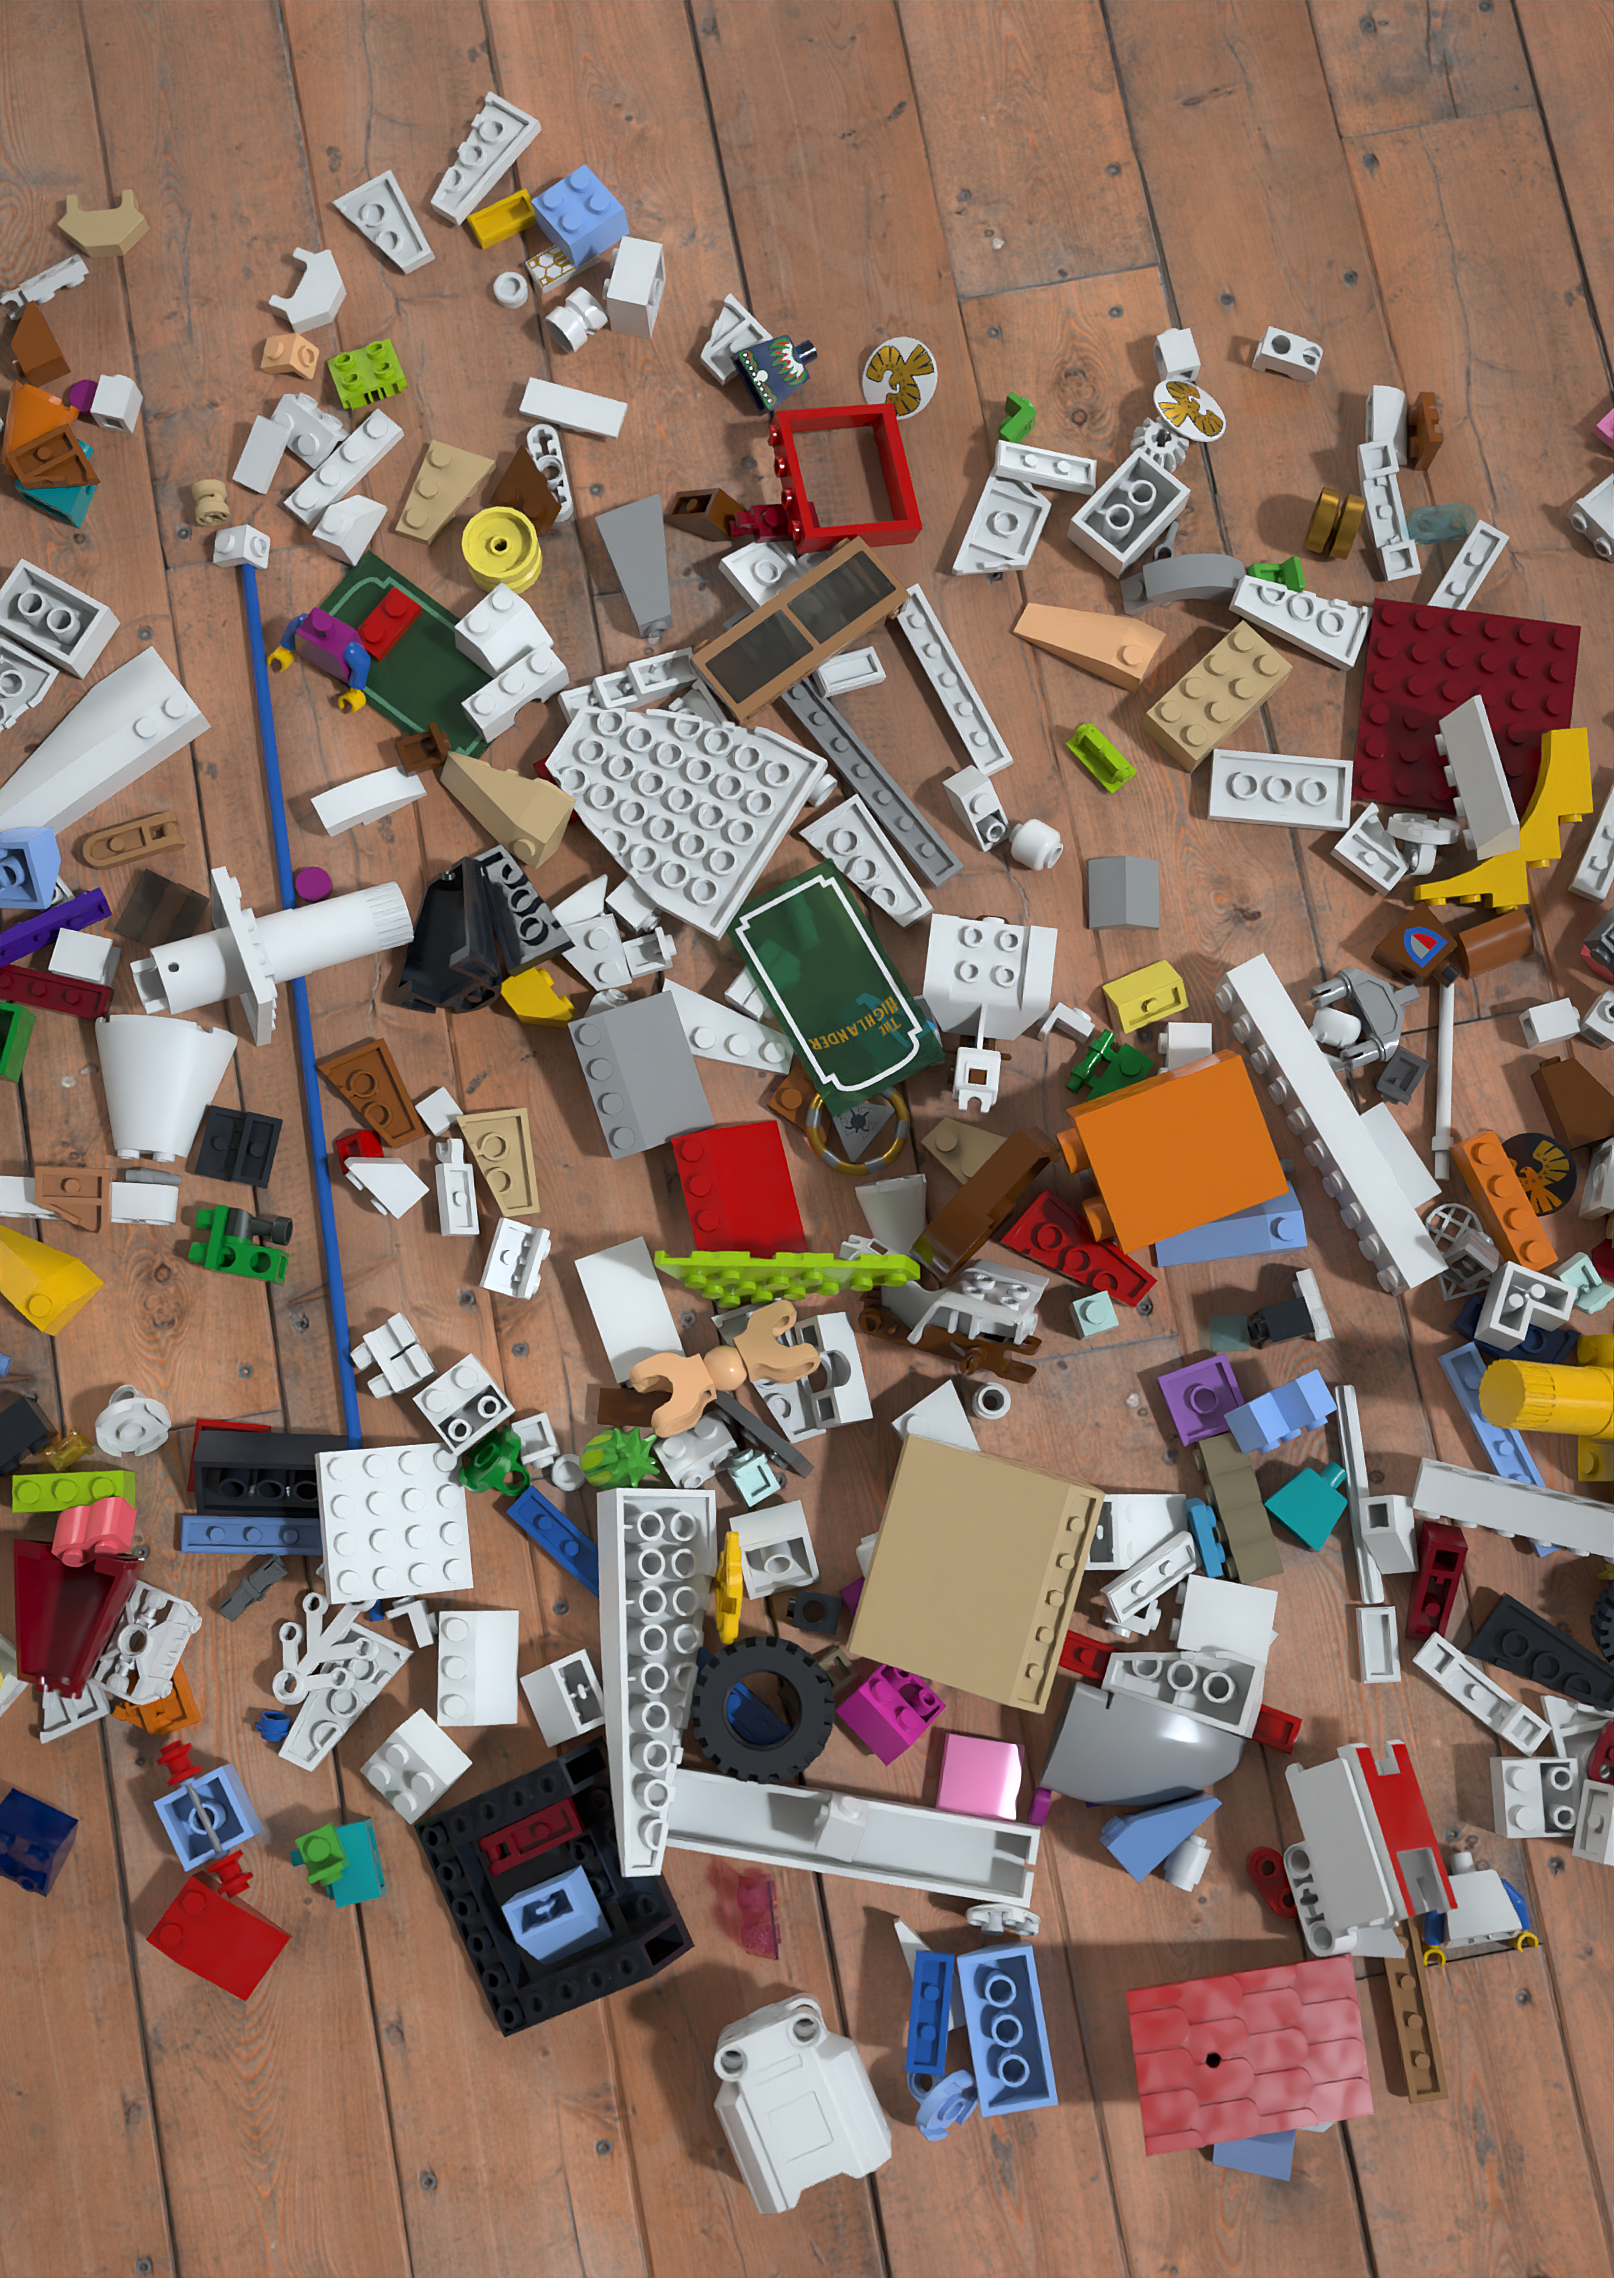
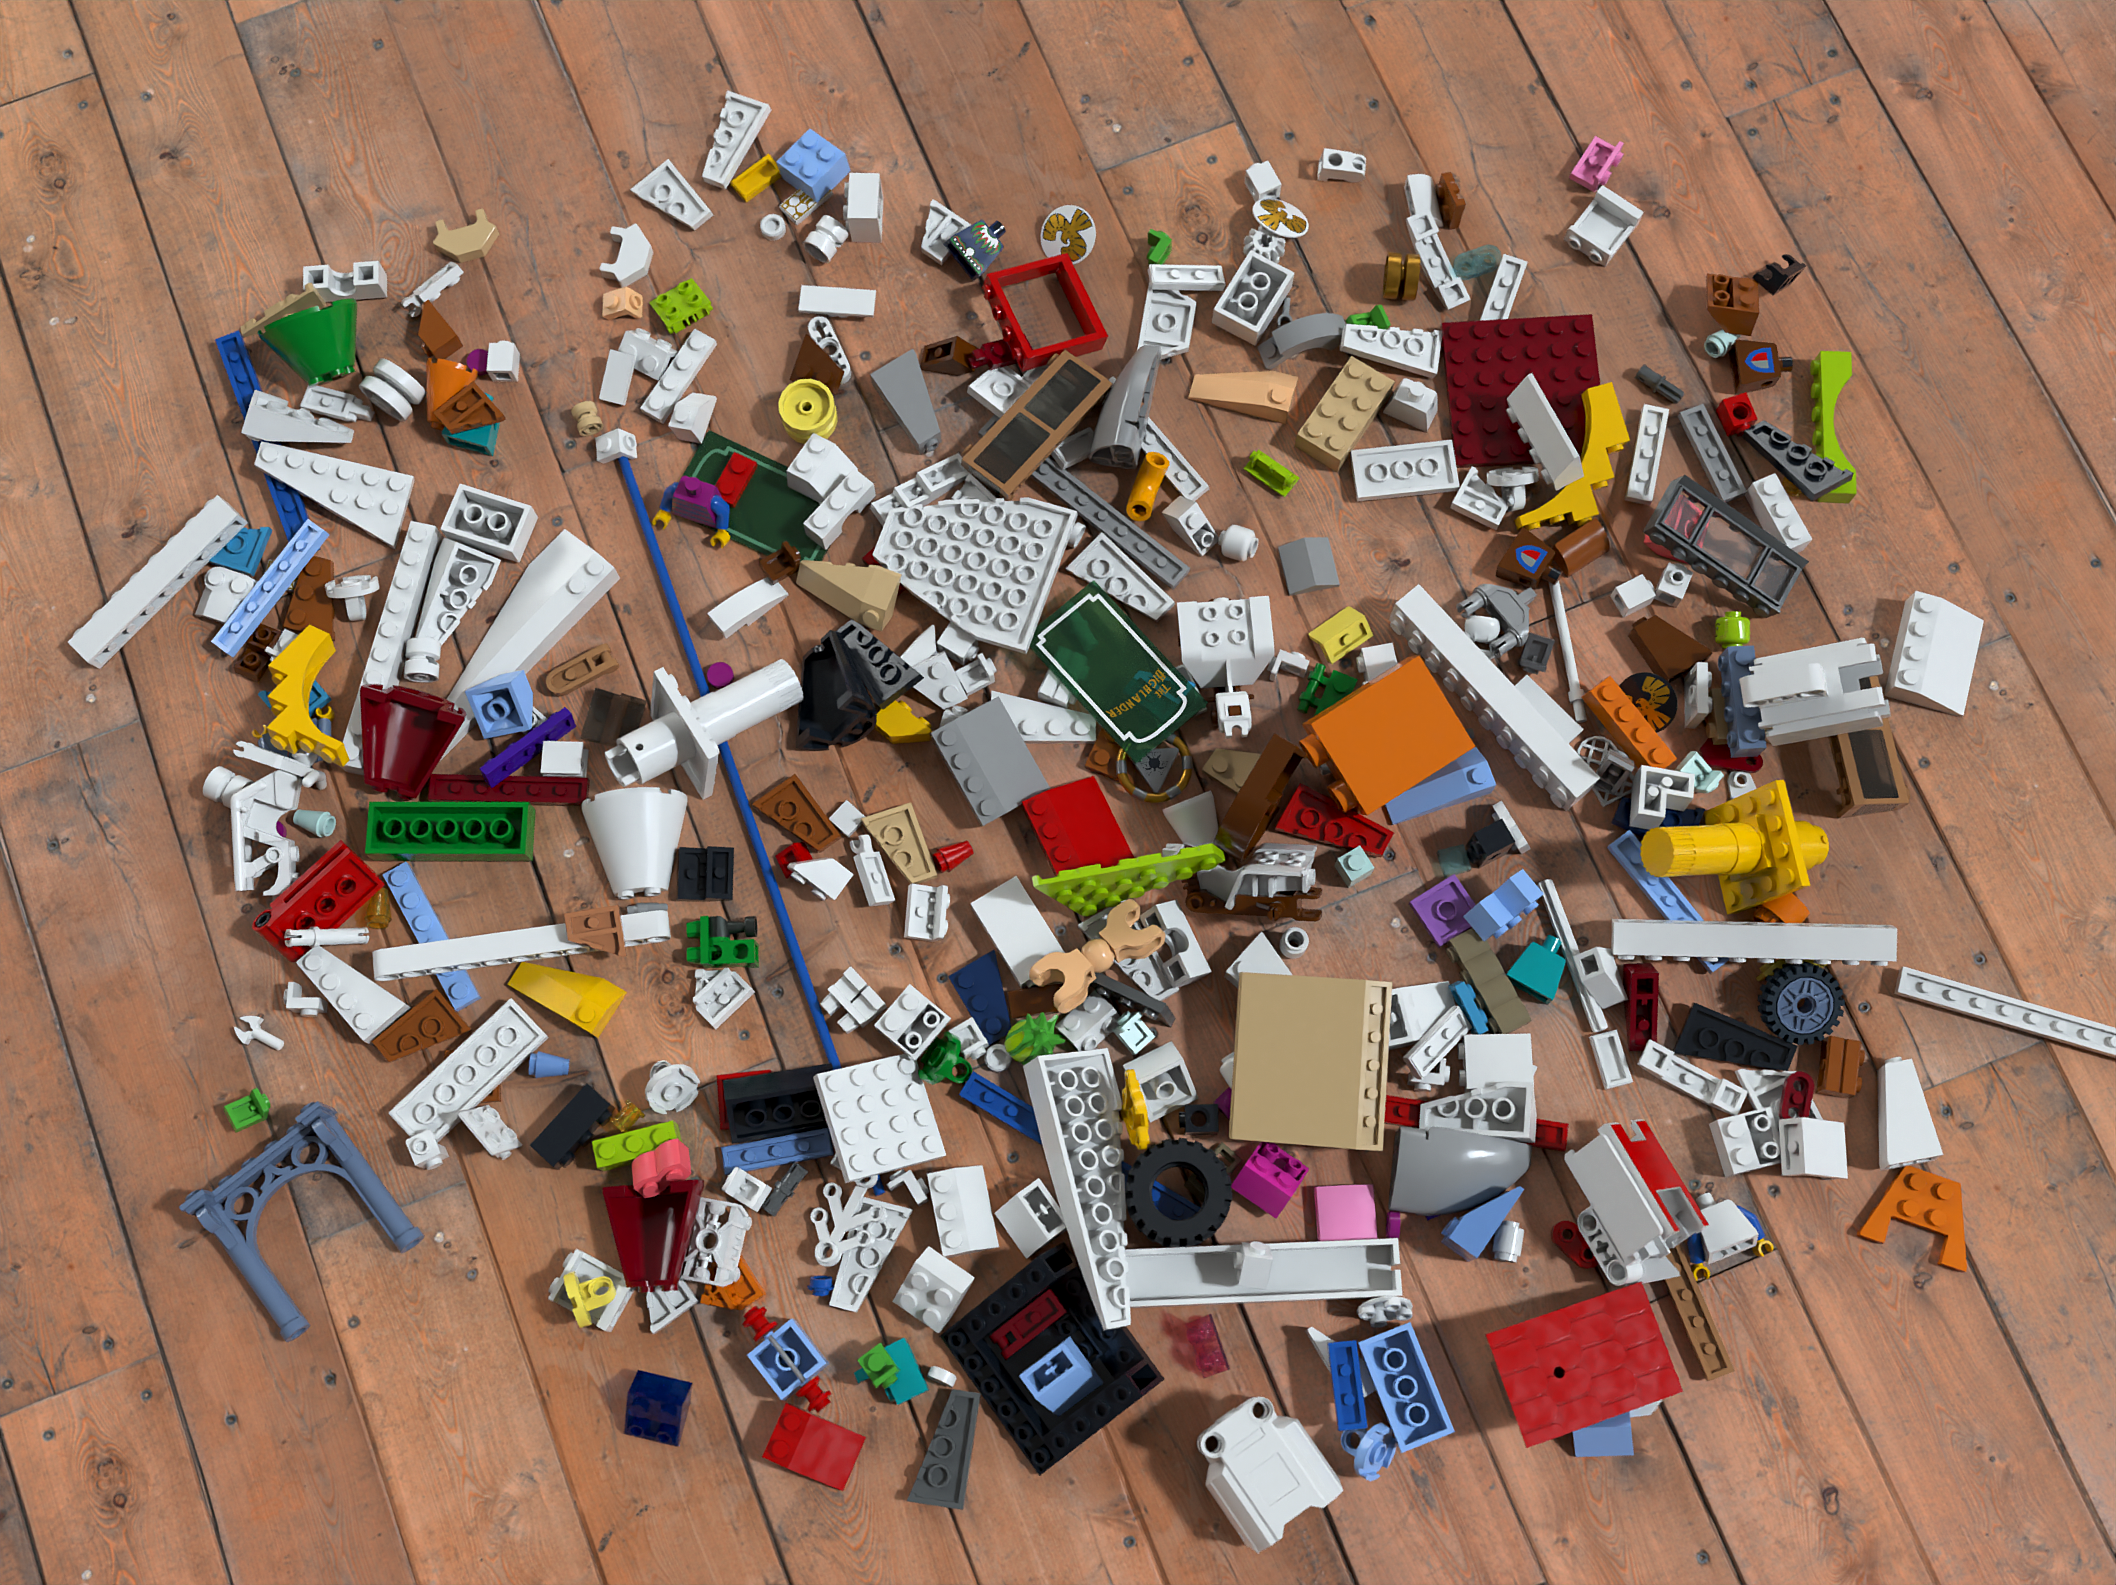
camera: 10 degrees left, 5 degrees down
(203, 1578) = (746, 1189): none -> white bracket
(224, 1312) = (719, 994): none -> white slope
(388, 1994) = (946, 1466): none -> dark grey wing
(404, 1880) = (942, 1376): none -> white tile
(440, 489) = (752, 376): tan wing -> none
(566, 1190) = (951, 856): none -> red cone
(567, 1387) = (983, 996): none -> dark blue wing
(897, 670) = (1115, 437): none -> light grey panel
(930, 743) = (1146, 486): none -> light orange cylinder
(1311, 702) = (1413, 404): none -> white torso

